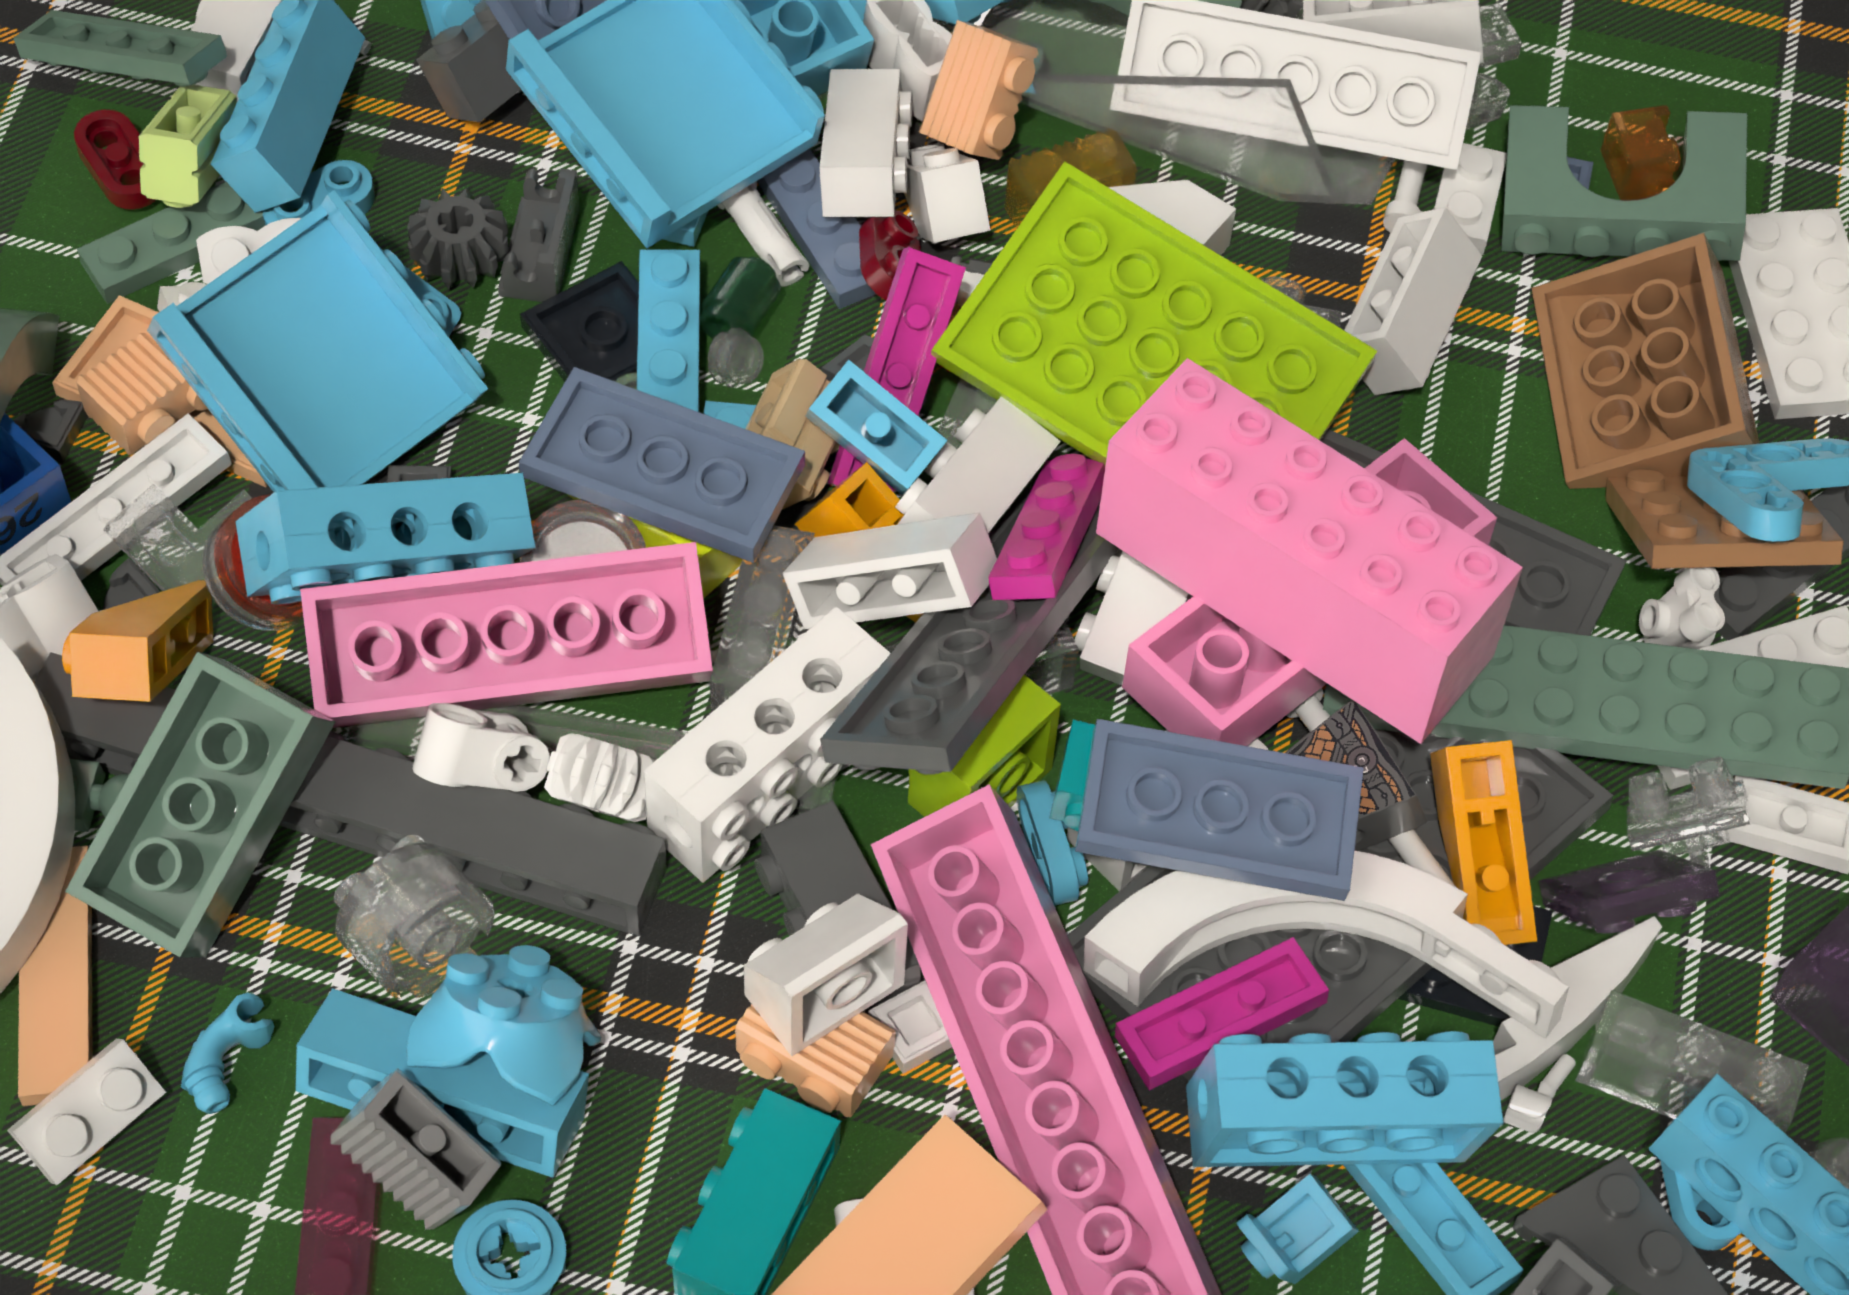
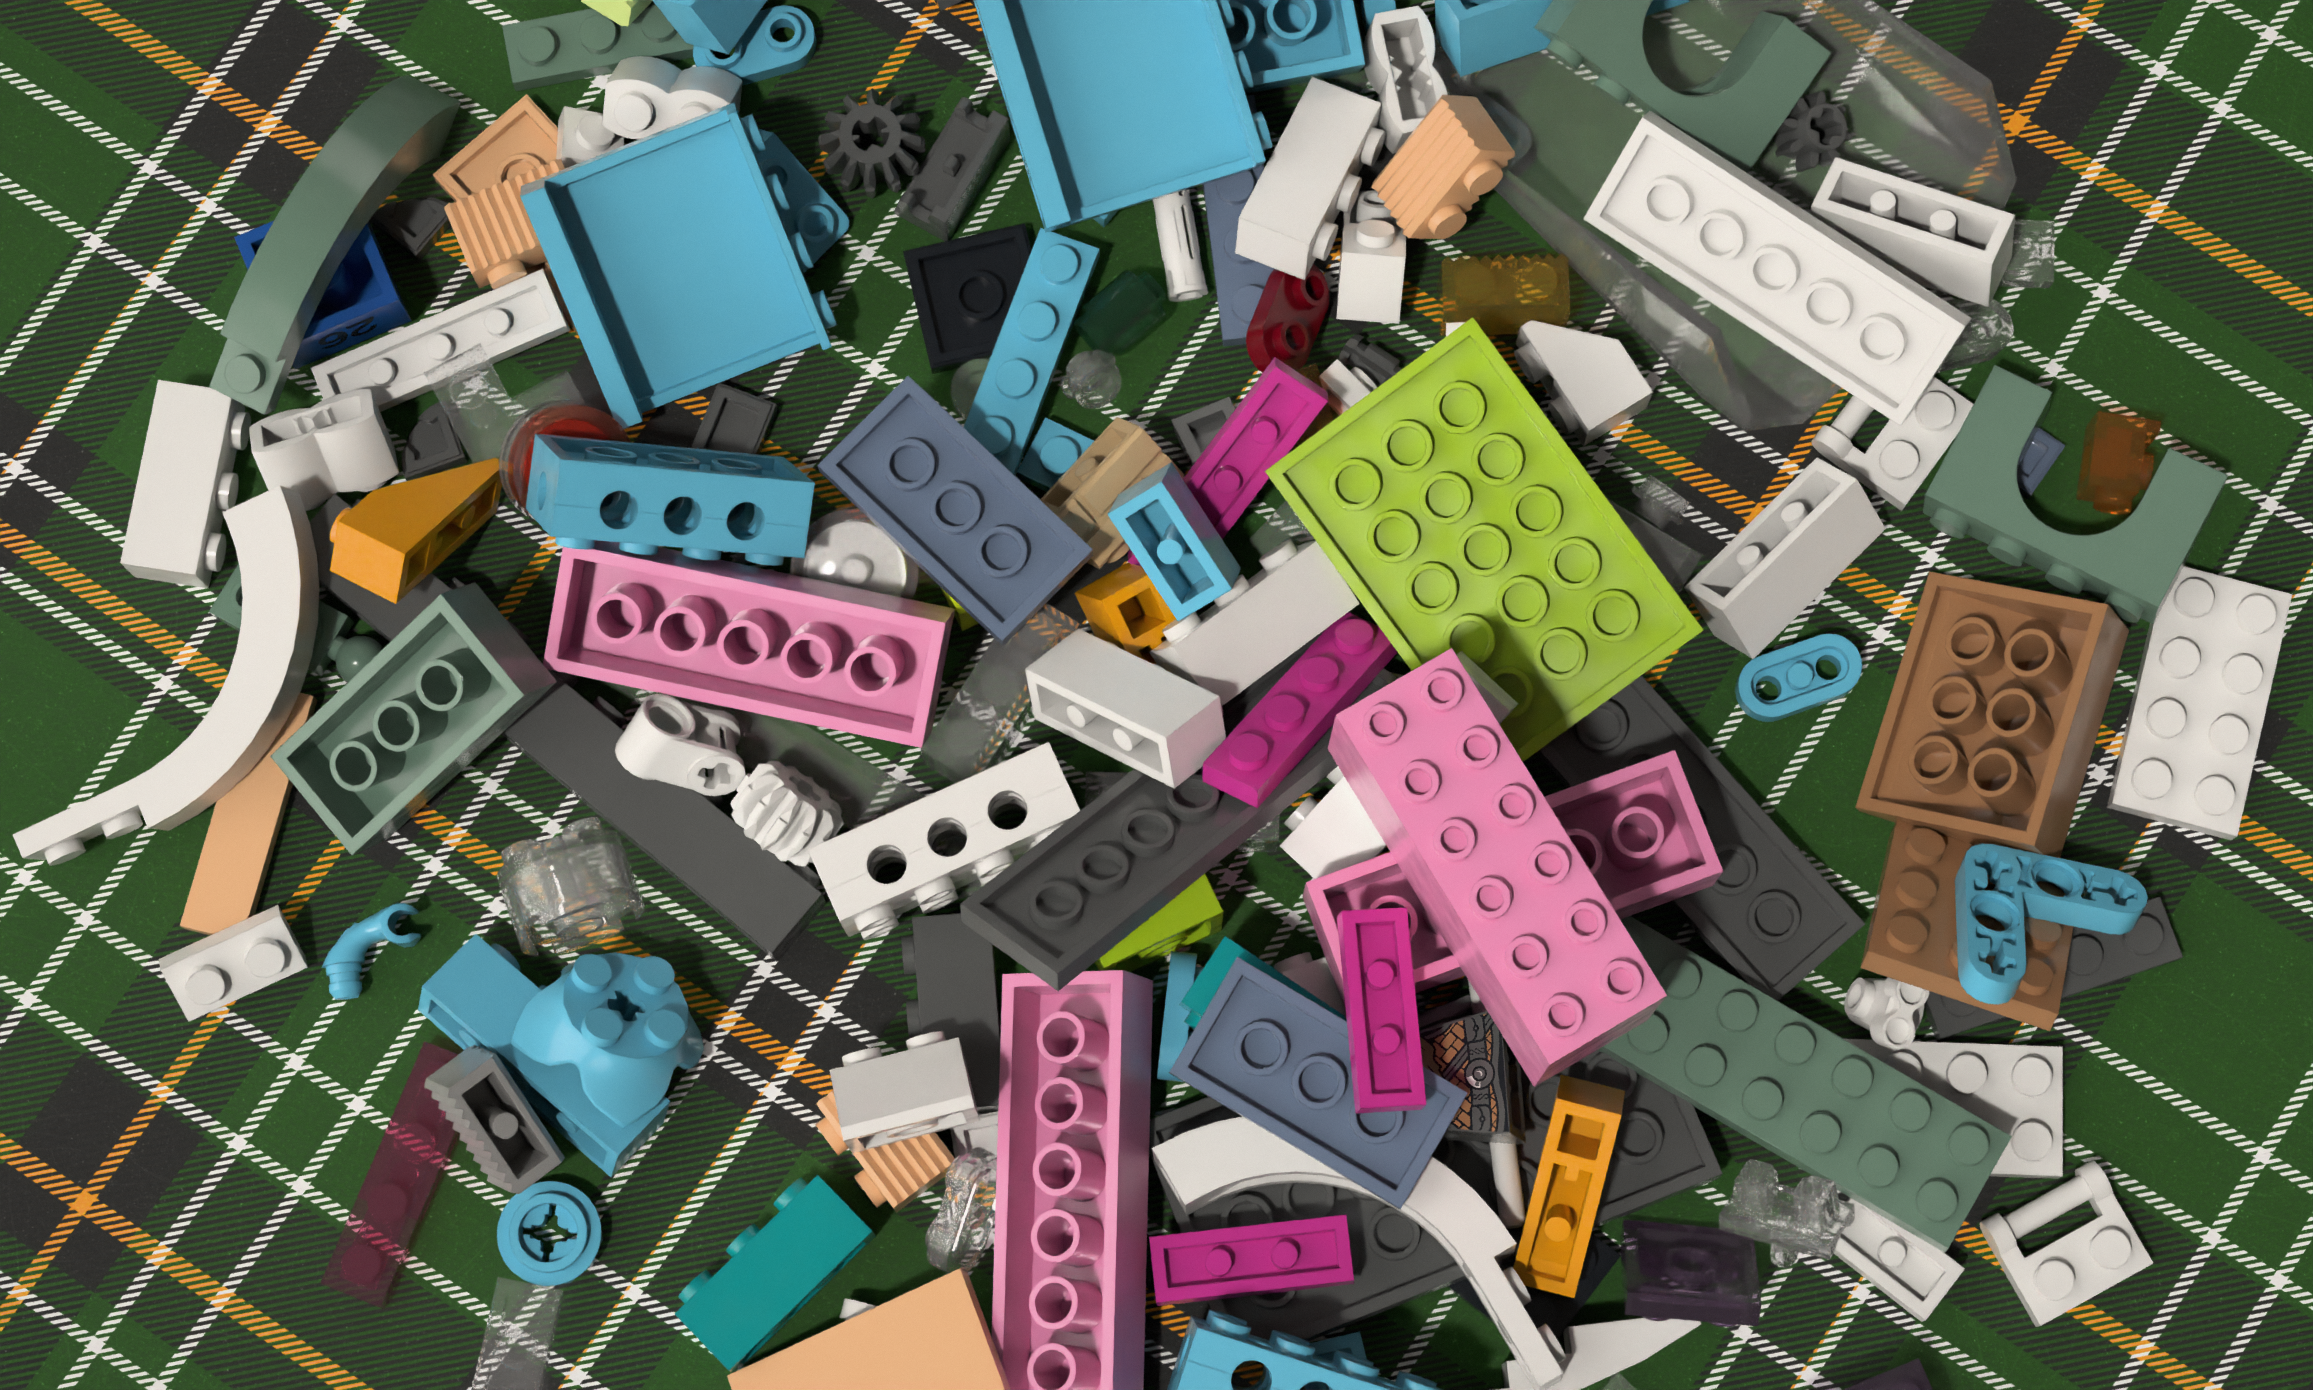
camera: 25 degrees right, 20 degrees up
(925, 1073) = (966, 1212): none -> clear plate
(1254, 714) = (1381, 1010): none -> dark pink plate
(1461, 398) = (1796, 678): none -> medium azure plate

